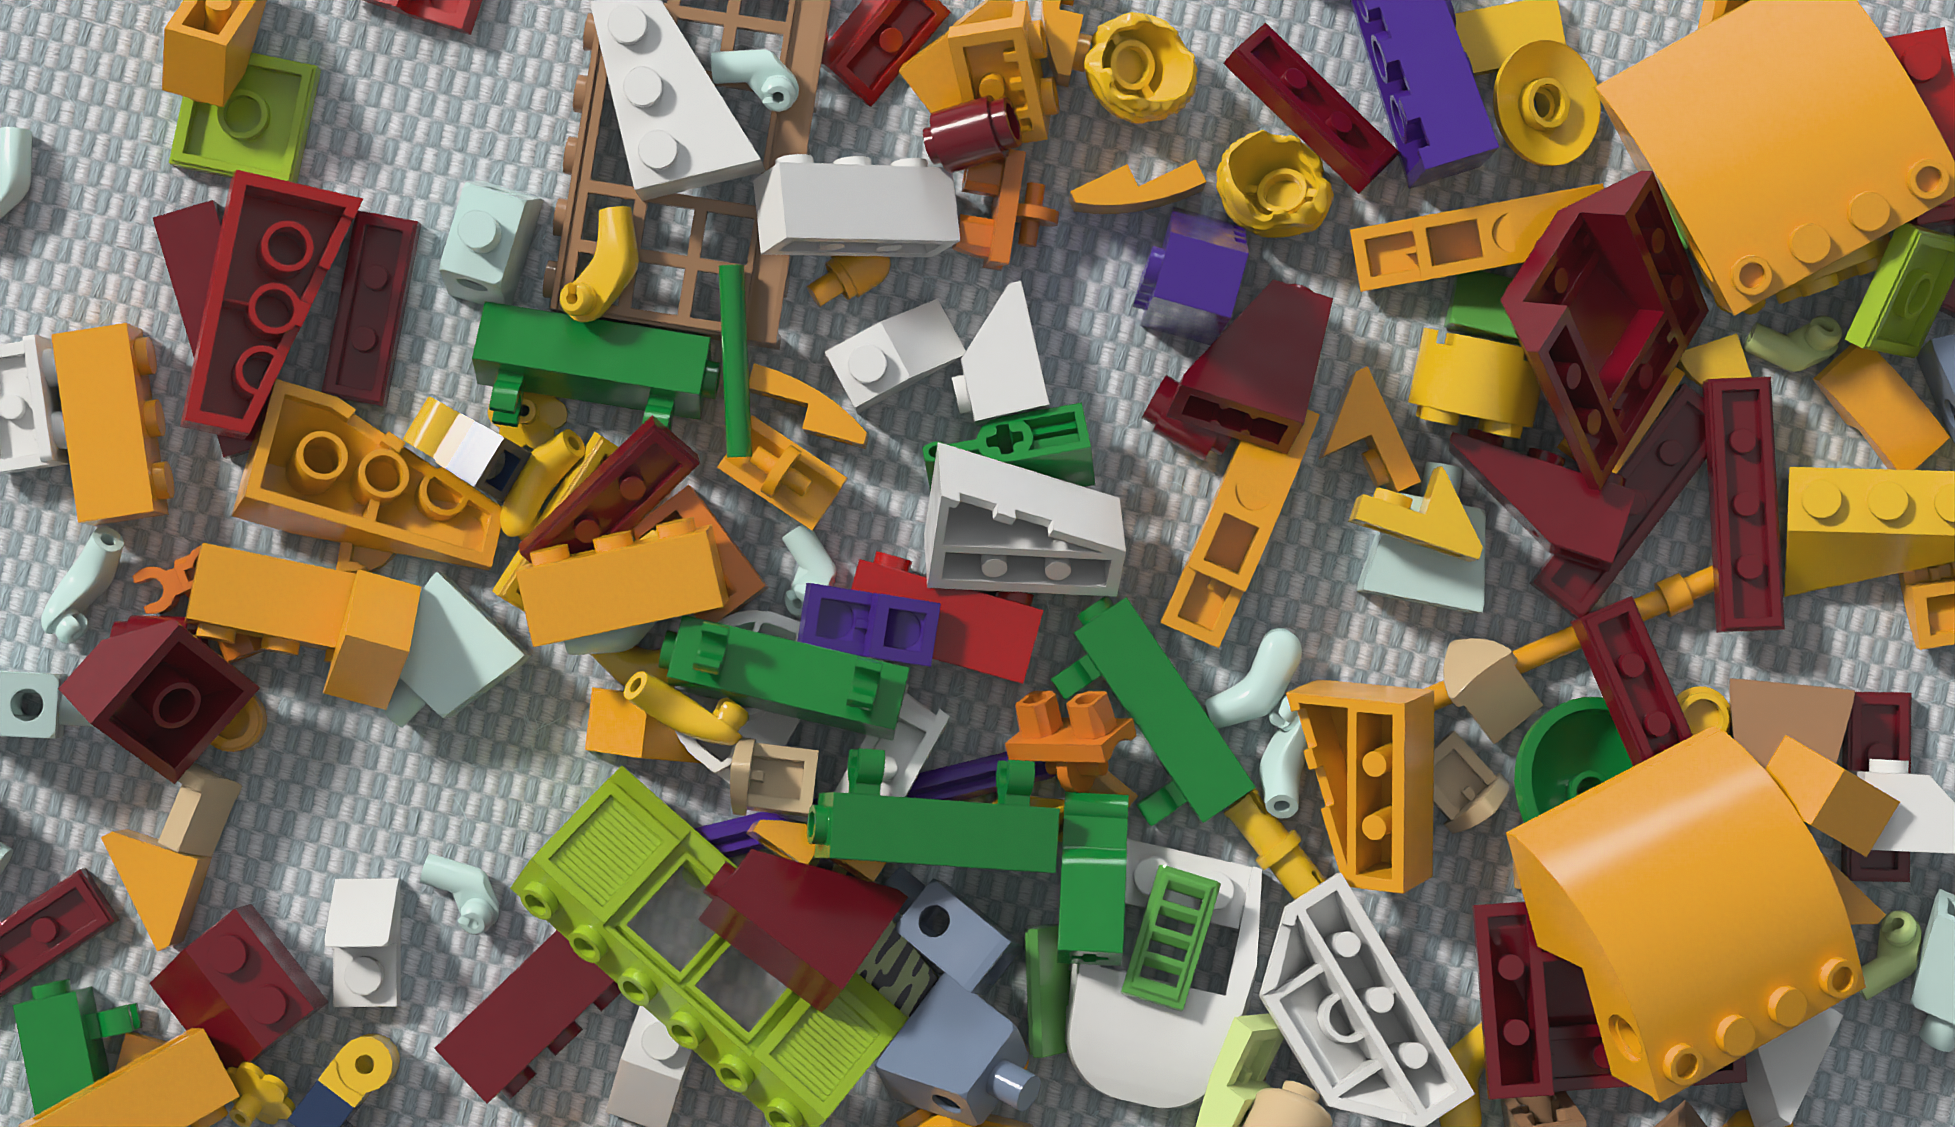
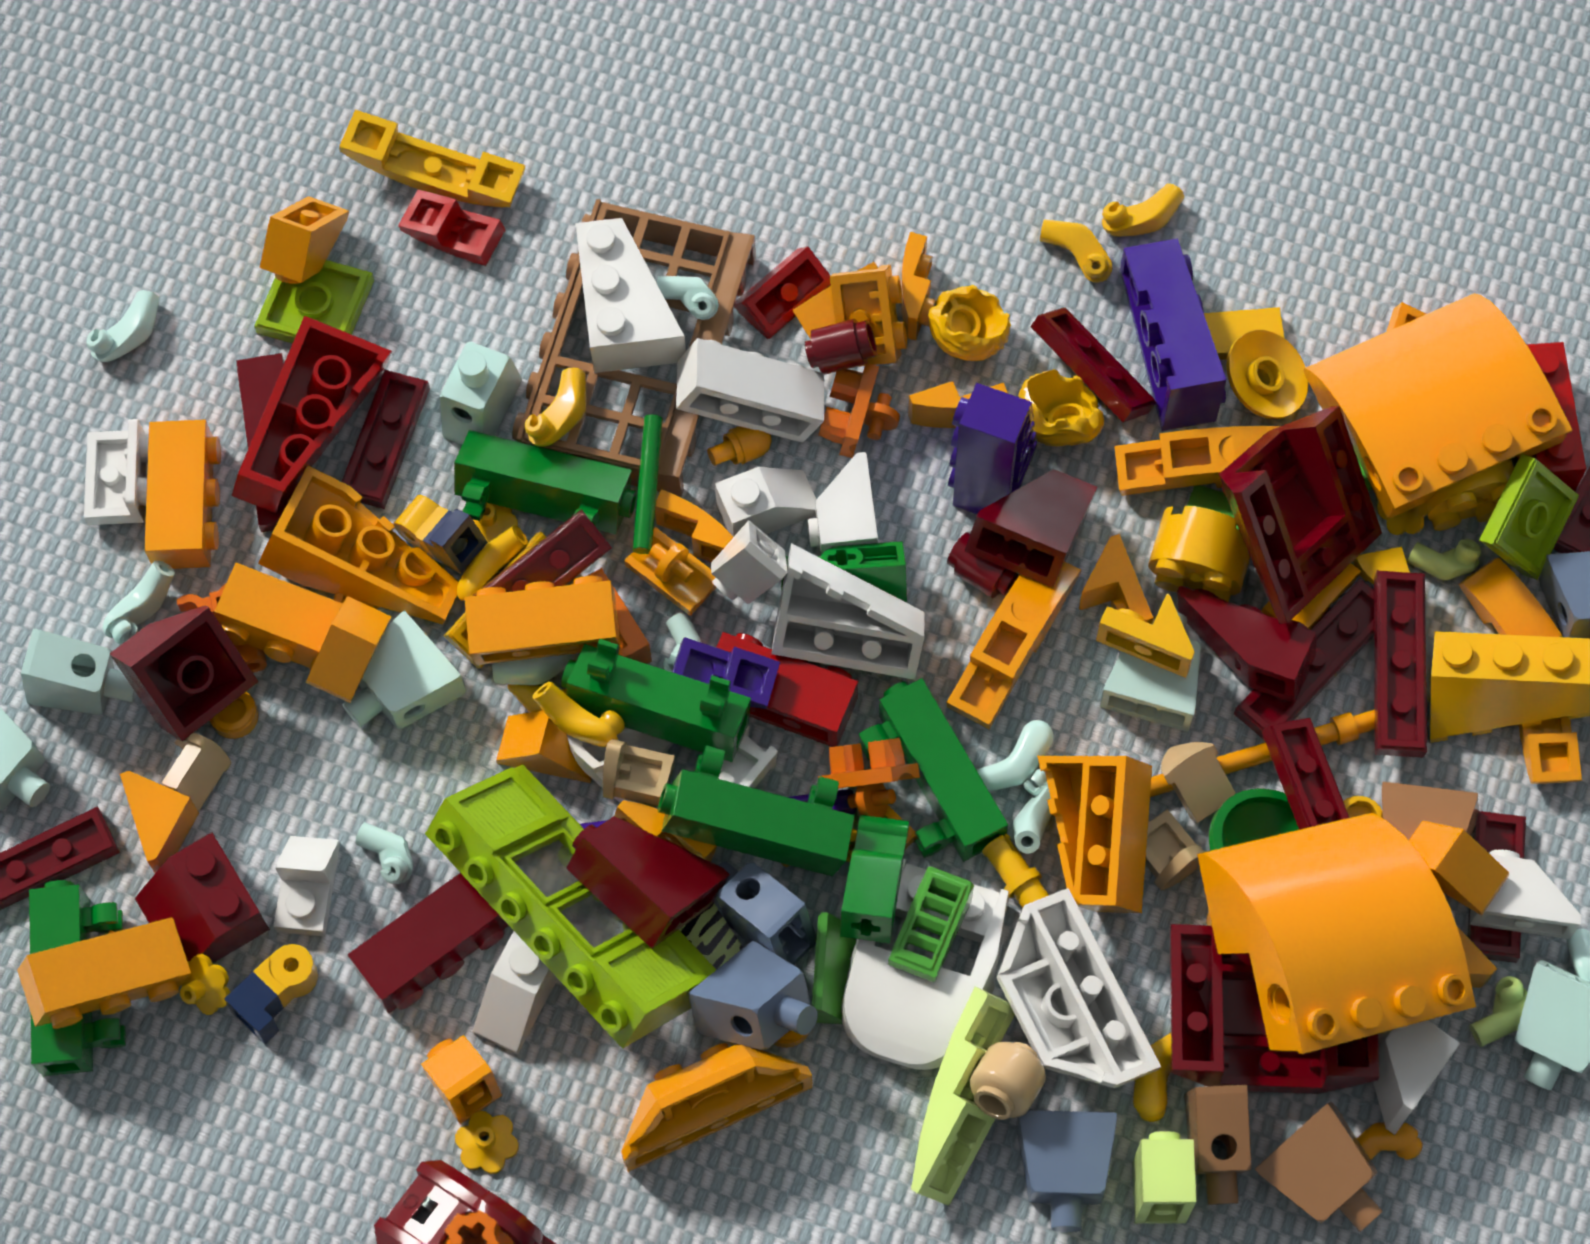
camera: 10 degrees right, 20 degrees down
(887, 471) = (748, 564): none -> white slope

